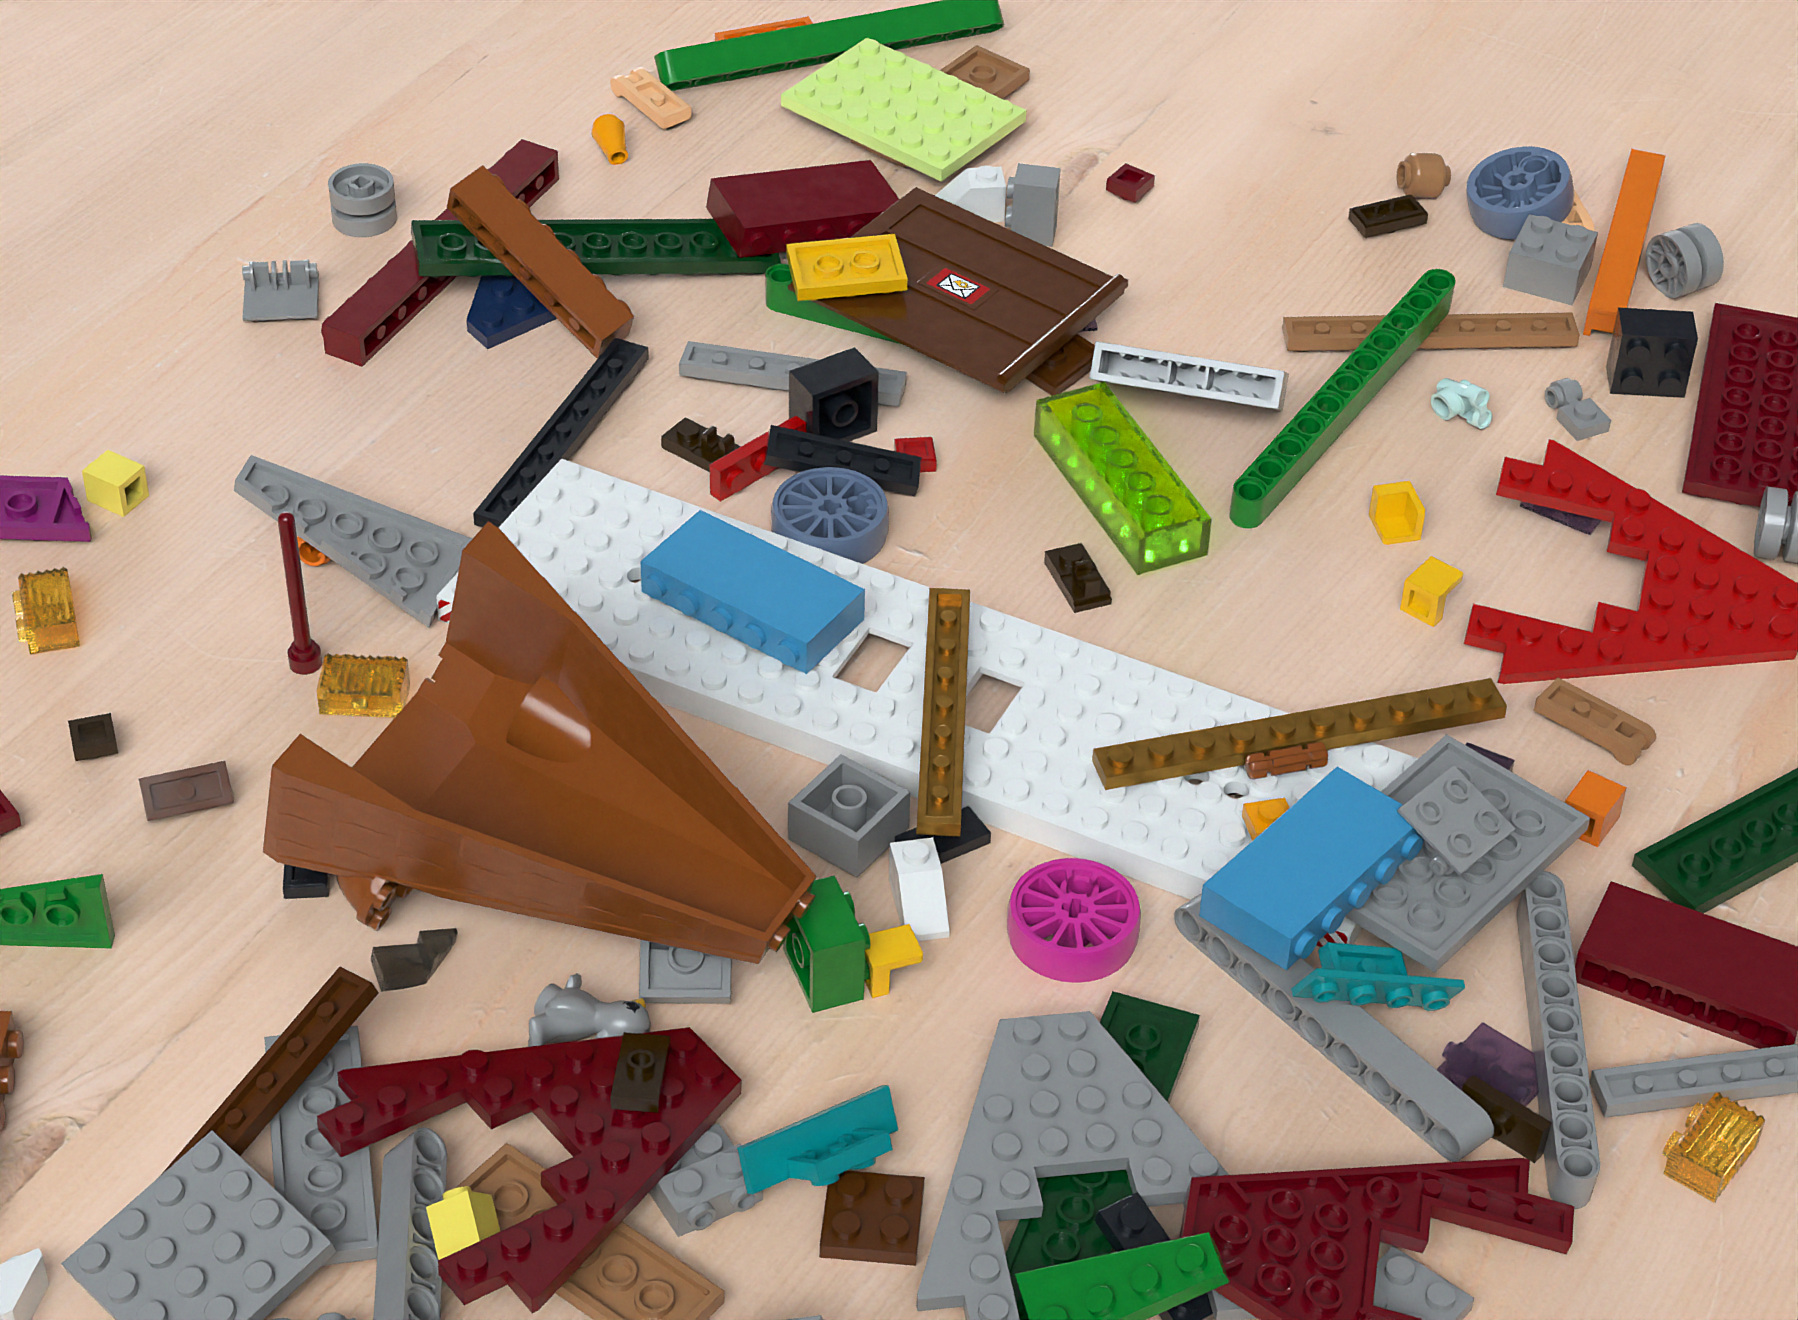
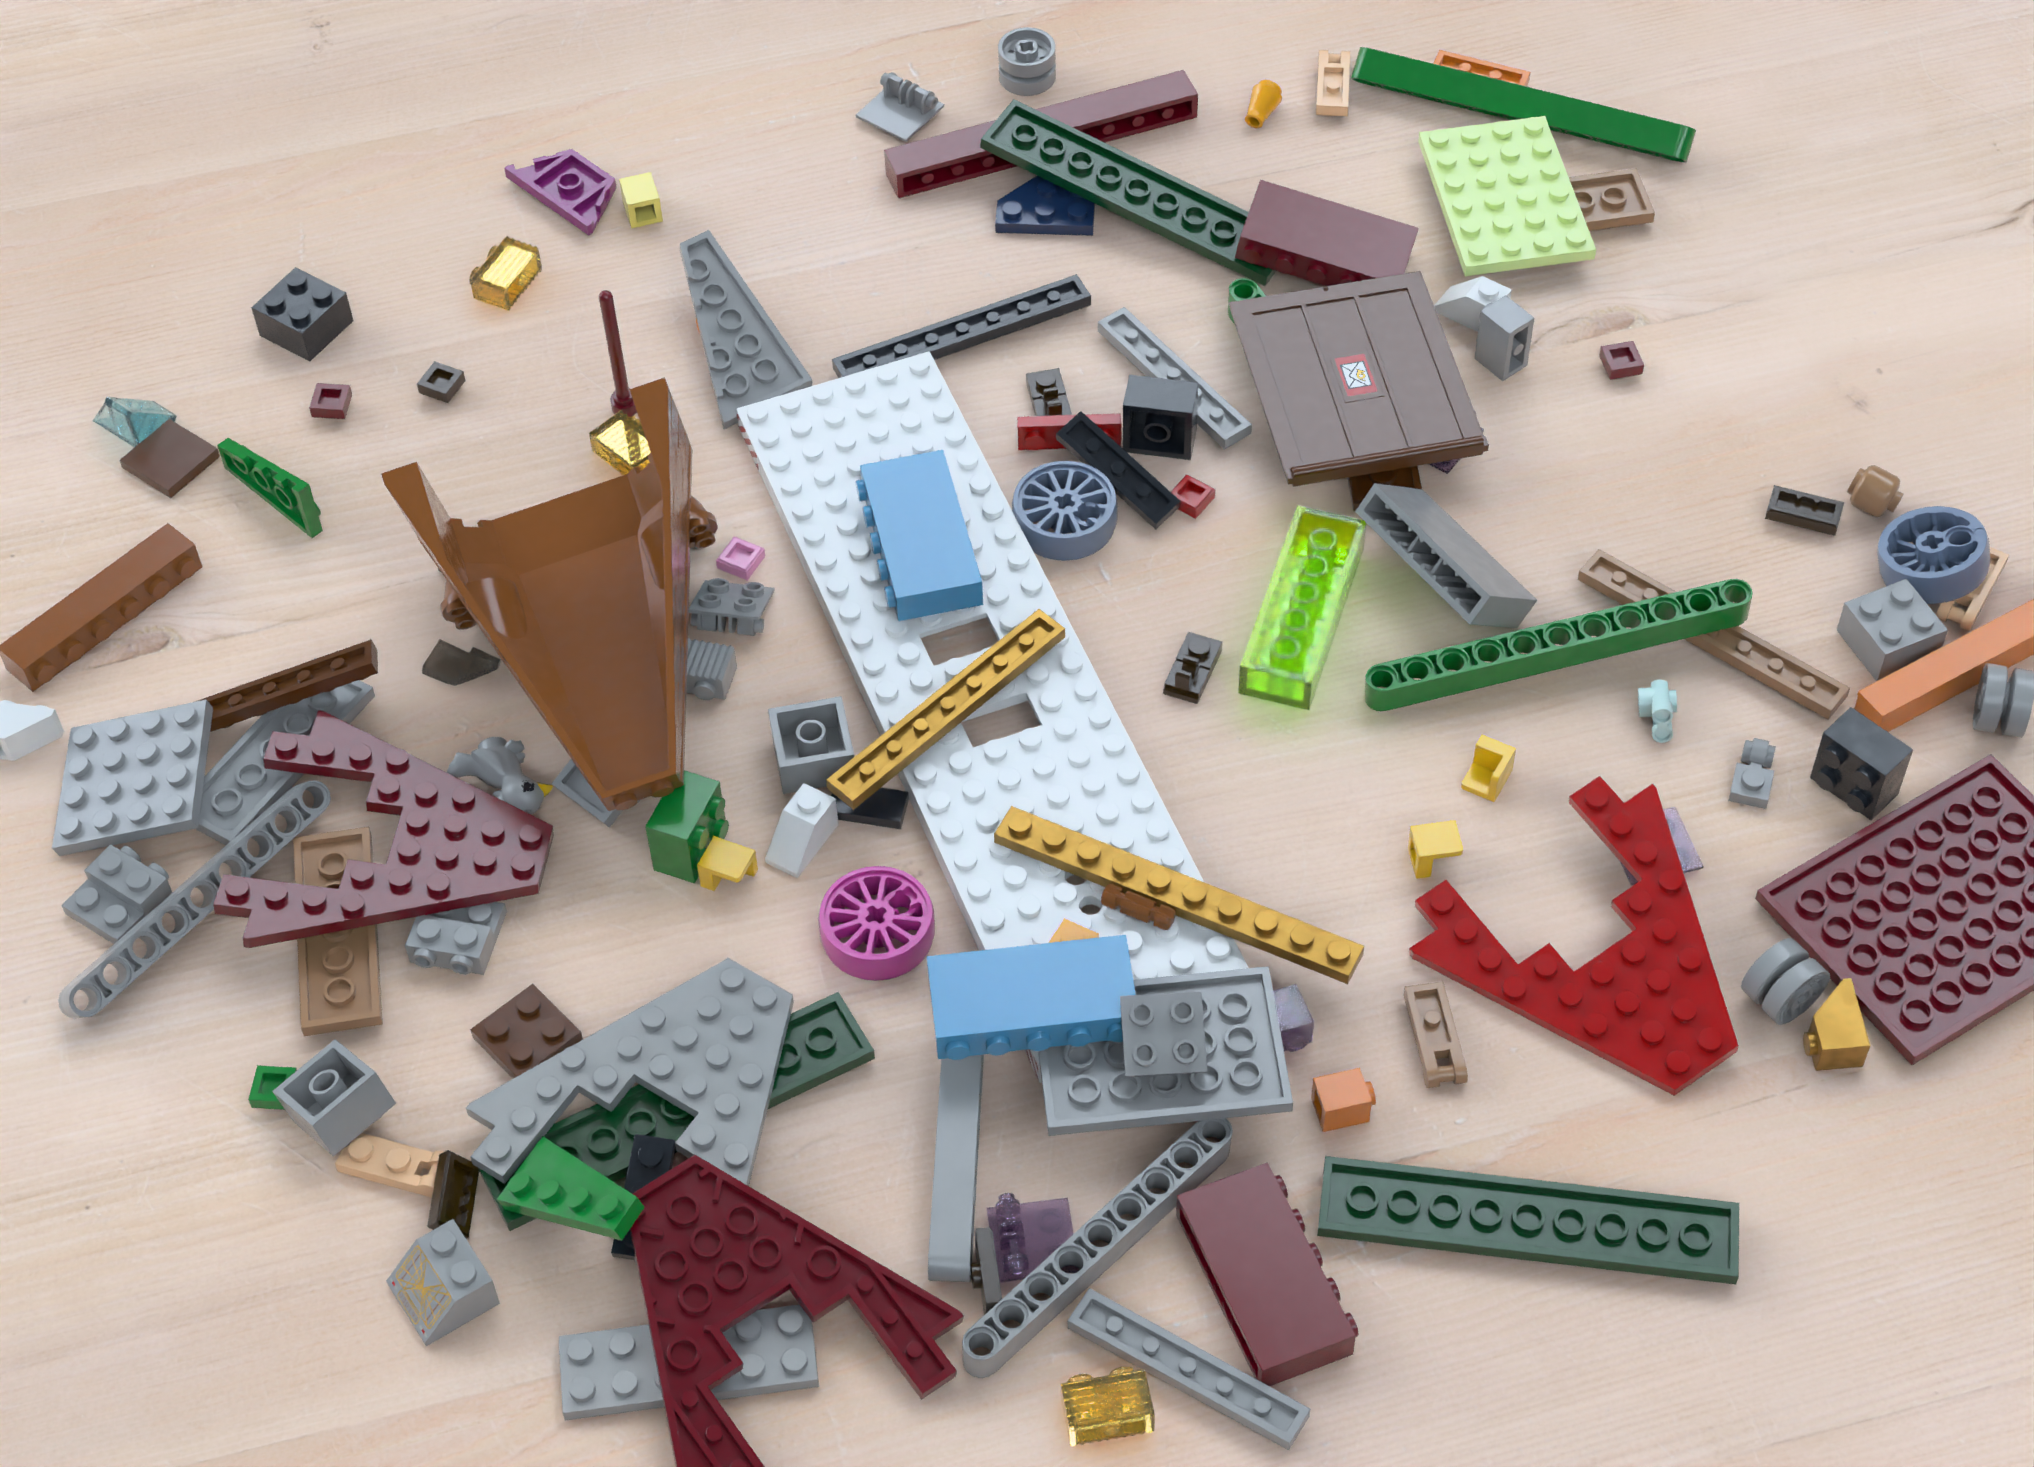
camera: 45 degrees right, 10 degrees up
(186, 790) = (451, 456): reddish brown plate -> none
(461, 1220) = (278, 860): light yellow brick -> none
(539, 260) = (1065, 183): dark orange brick -> none
(640, 1072) = (472, 835): dark brown plate -> none
(823, 1143) = (534, 963): teal bracket -> none
(846, 267) = (1278, 311): yellow plate -> none
(1373, 976) = (1002, 1103): teal bracket -> none

